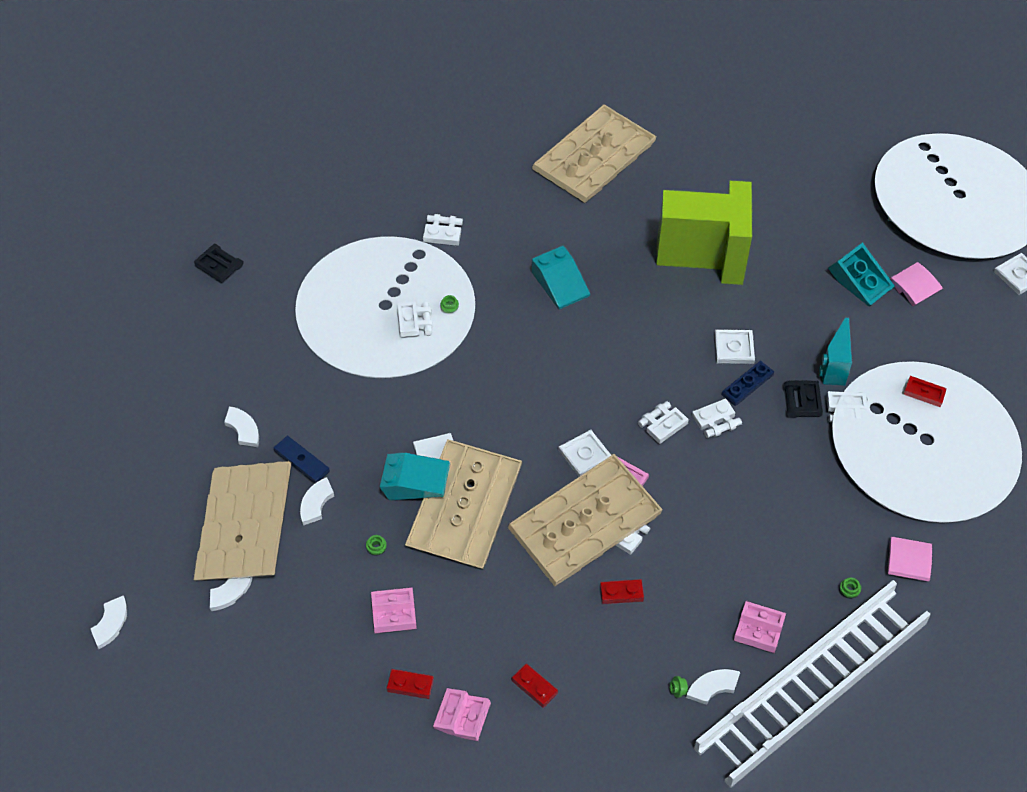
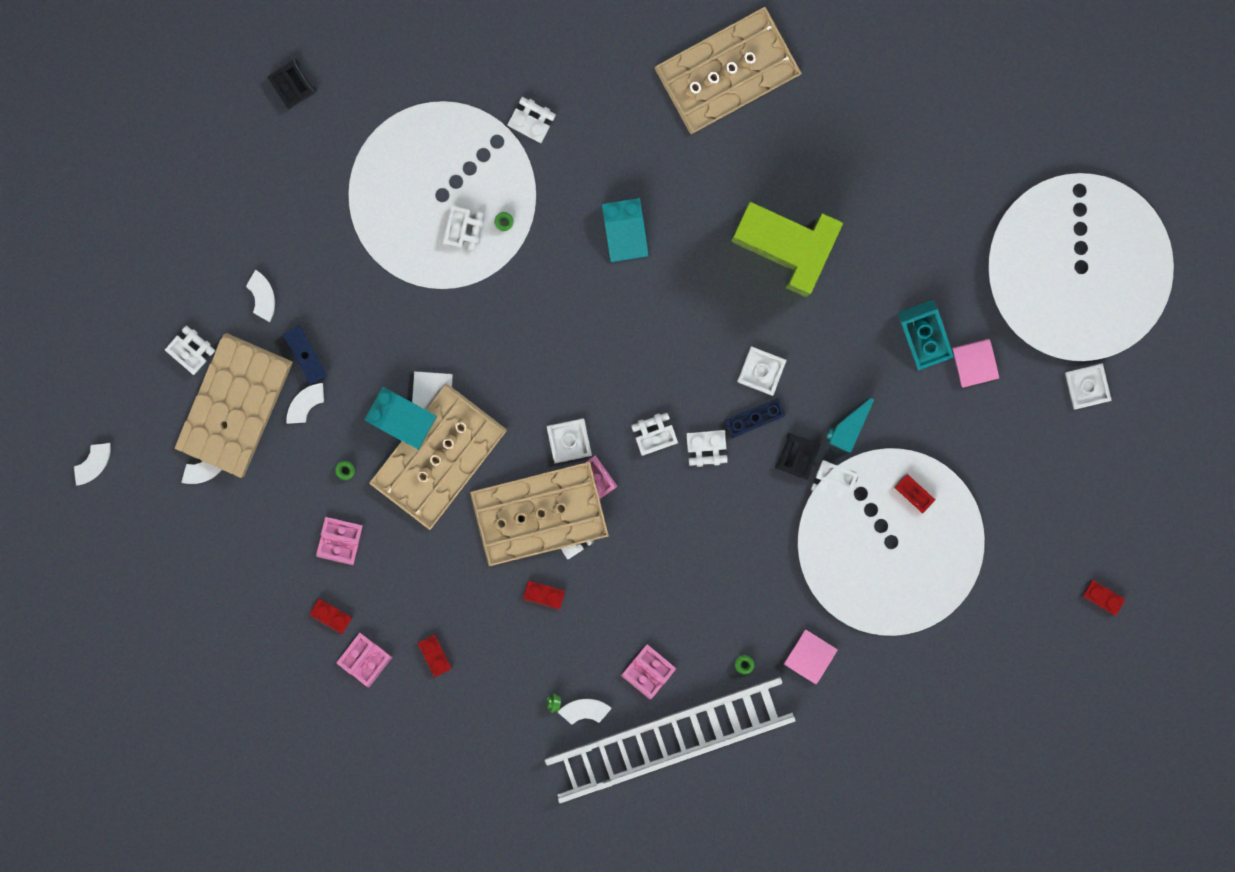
camera: 20 degrees right, 35 degrees up
(184, 495) = (185, 354): none -> white plate

